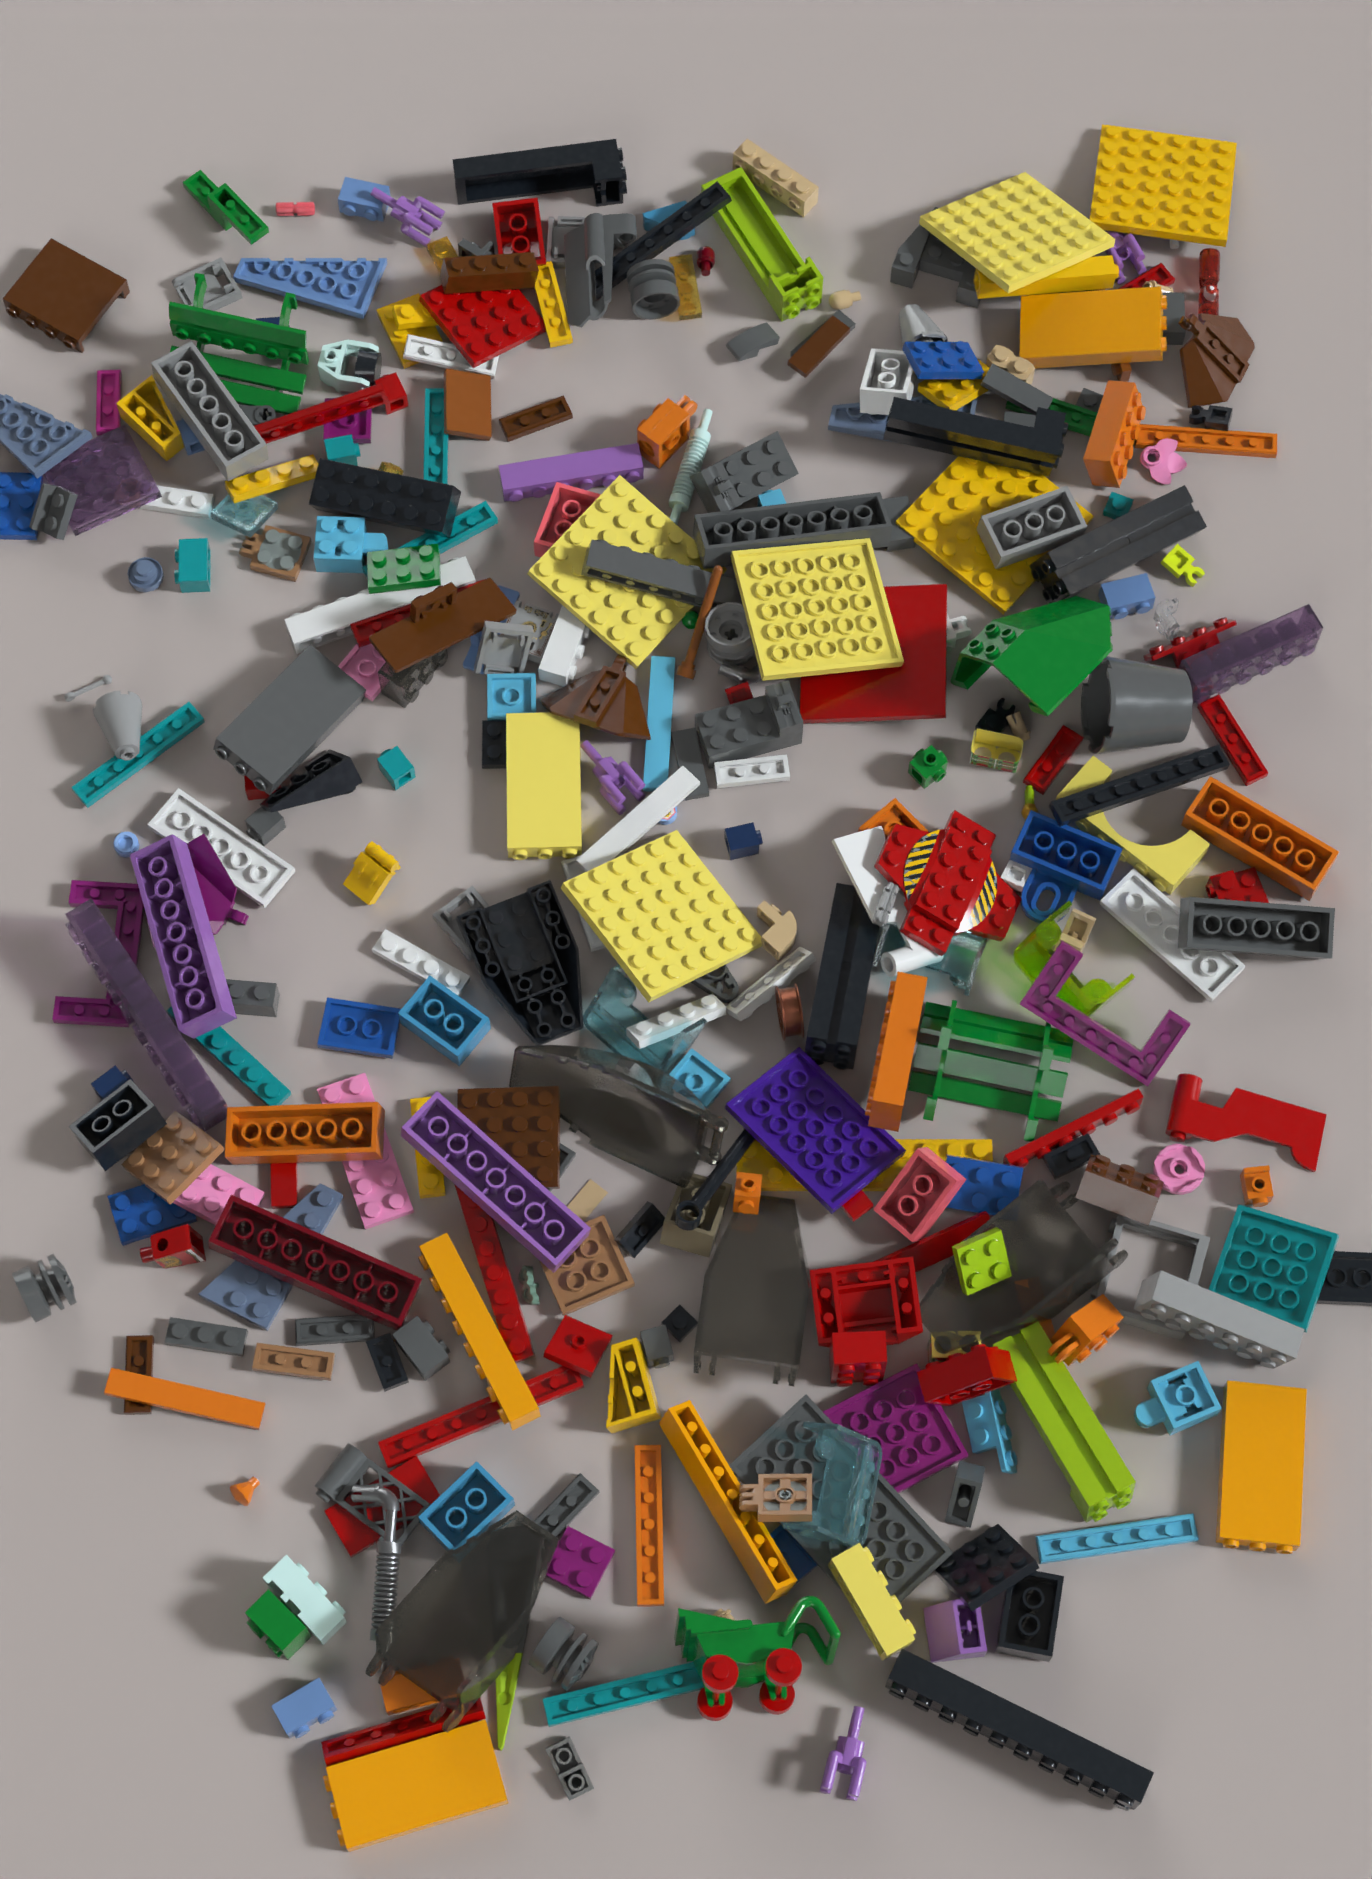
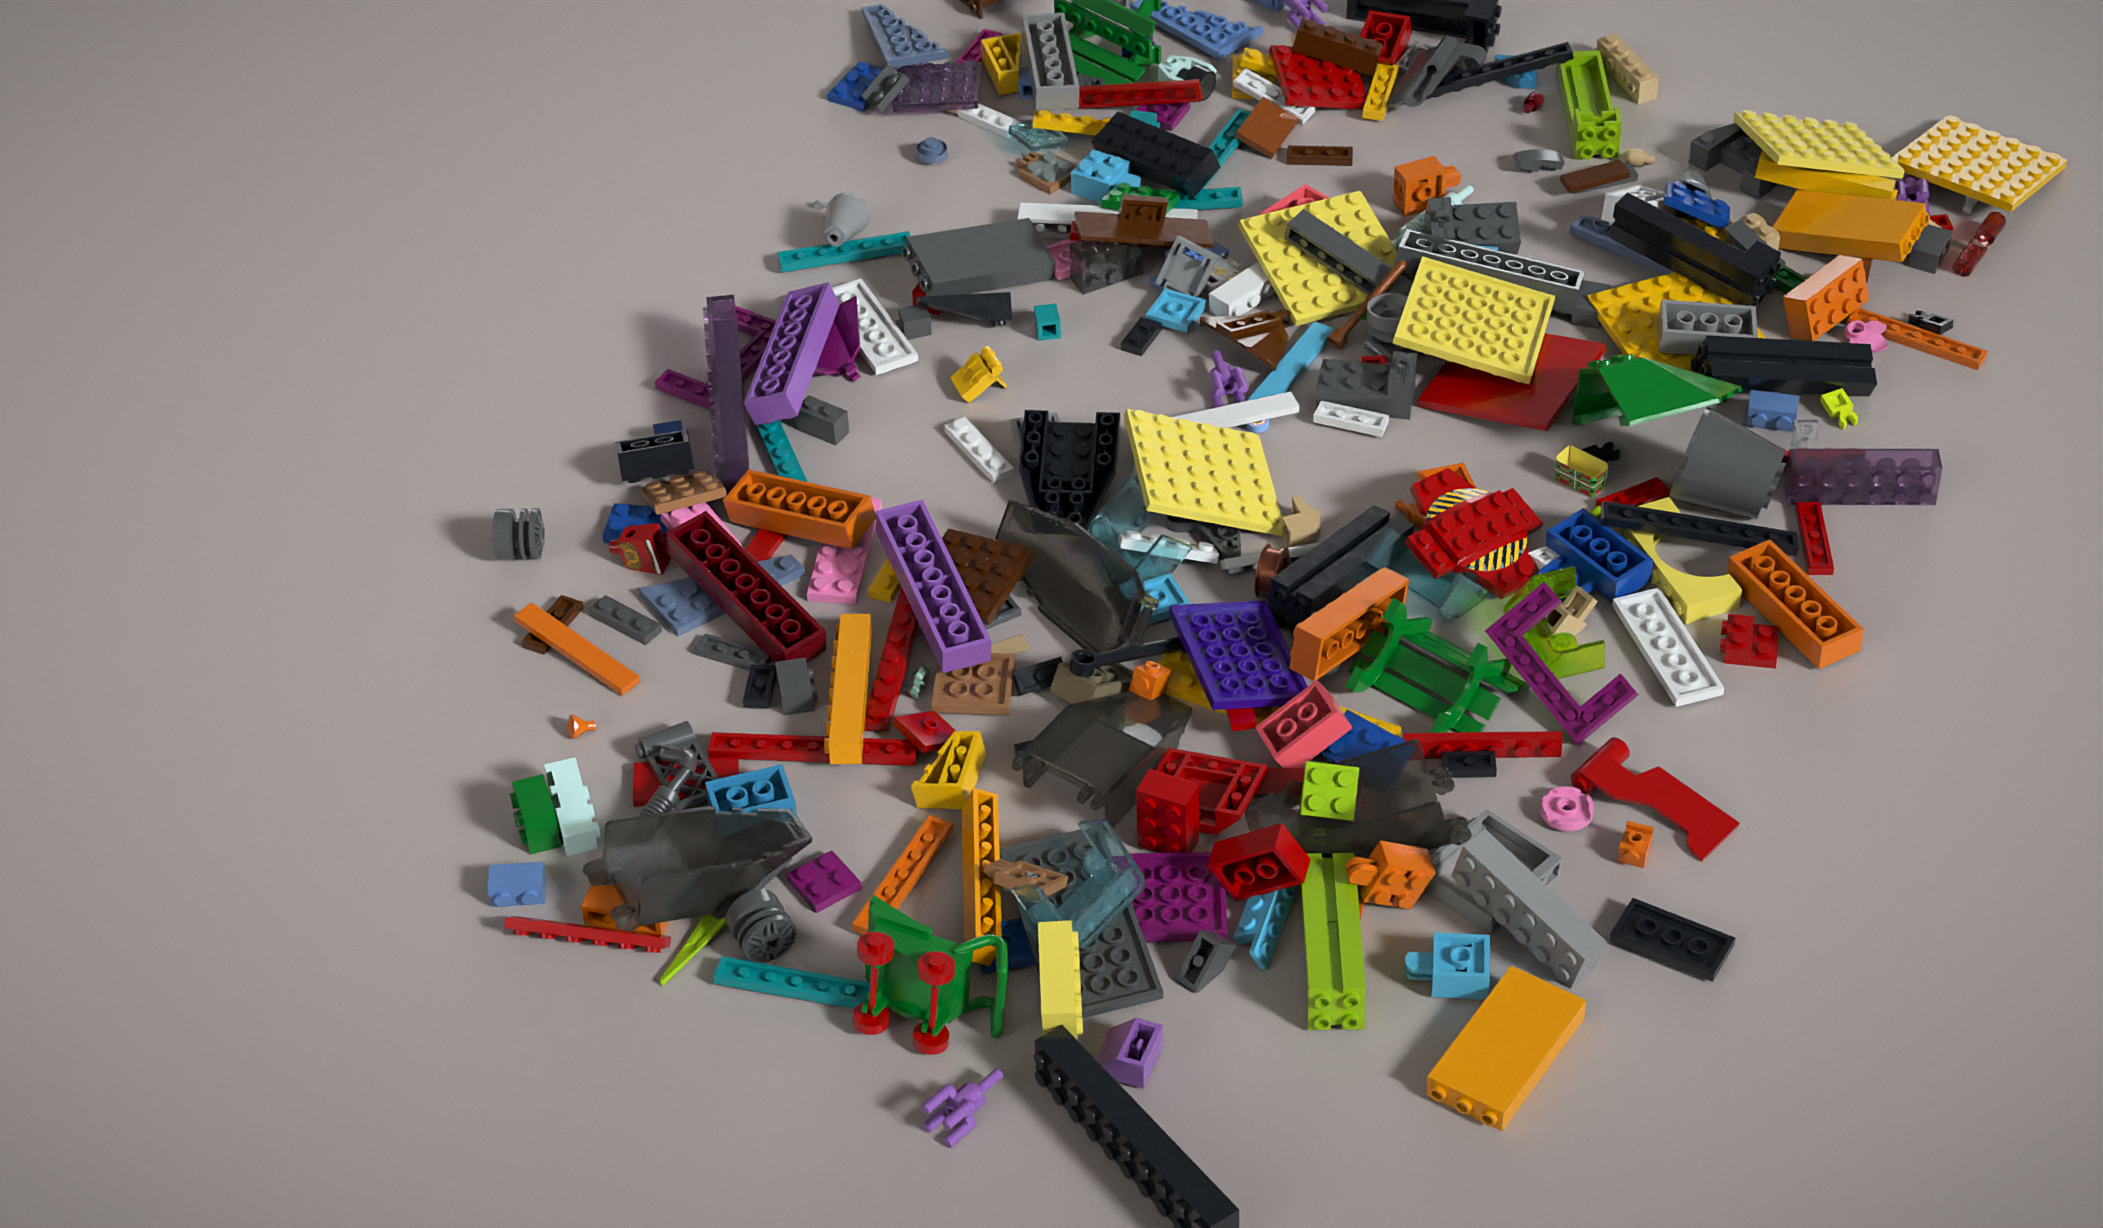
camera: 30 degrees right, 25 degrees down
(194, 565) = (974, 156): teal brick -> none
(293, 1361) = (683, 658): medium nougat plate -> none
(359, 1028) = (897, 470): blue plate -> none
(395, 392) = (1210, 105): red brick -> none
(415, 1786) = (570, 974): light orange brick -> none
(444, 1020) = (969, 483): dark azure brick -> none
(543, 786) = (1163, 367): light yellow brick -> none
(567, 1505) = (839, 841): dark grey tile -> none
(569, 1768) = (710, 1017): dark grey slope -> none
(579, 470) = (1279, 182): medium lavender brick -> none
(653, 289) = (1472, 99): dark grey wheel -> none
(657, 1347) = (997, 757): dark grey brick -> none
(687, 287) = (1503, 113): clear yellow plate -> none
(689, 756) = (1304, 392): dark grey tile -> none
(742, 840) = (1311, 458): dark blue brick -> none
(859, 855) = (1404, 518): white door -> none
(885, 904) = (1402, 516): light grey axle -> none
(928, 766) = (1511, 460): green brick -> none
(986, 1567) = (1184, 1007): black plate -> none
(1019, 728) = (1613, 462): tan pin -> none
(1030, 1616) = (1205, 1065): black brick -> none
(1116, 1538) = (1330, 1052): medium azure tile -> none
(1120, 1189) = (1496, 790): brick -> none
(1213, 357) = (1955, 279): reddish brown panel -> none
(1256, 928) = (1747, 654): dark grey brick -> none
(1274, 1265) = (1620, 900): teal plate -> none

